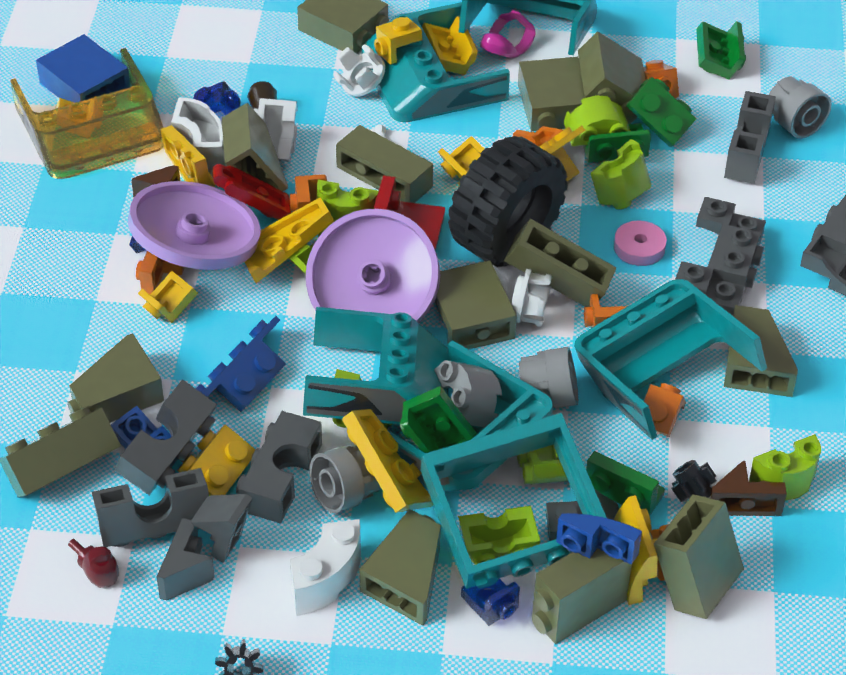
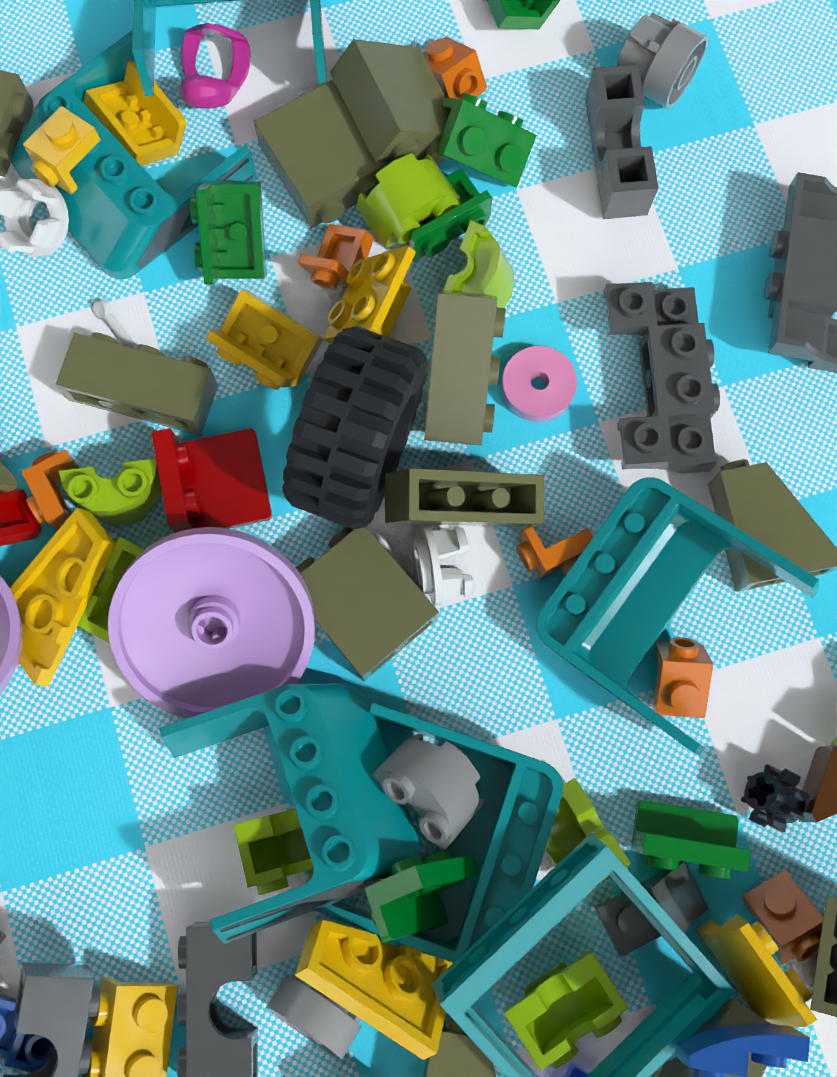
camera: 25 degrees left, 30 degrees up
(249, 370) = (98, 857): blue bracket -> none
(478, 107) = (229, 230): none -> green bracket
(552, 374) = (525, 703): light grey piece -> none
(592, 201) = (463, 367): none -> olive brick

